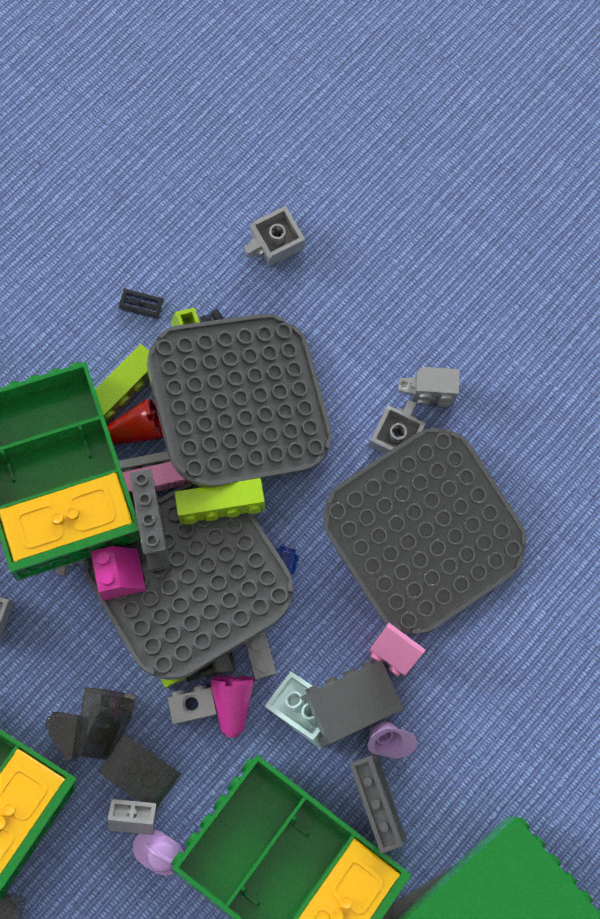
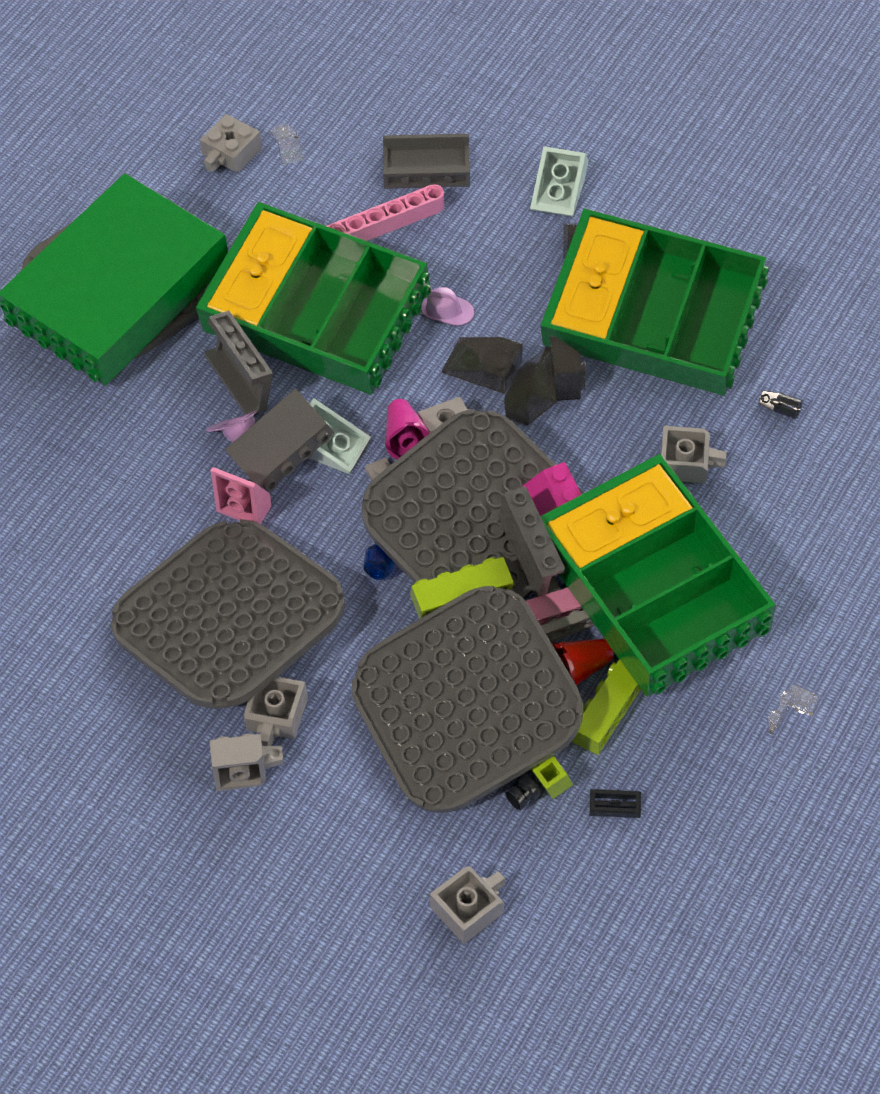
camera: 175 degrees right, 20 degrees down
(132, 816) = (479, 323): light grey hinge -> none

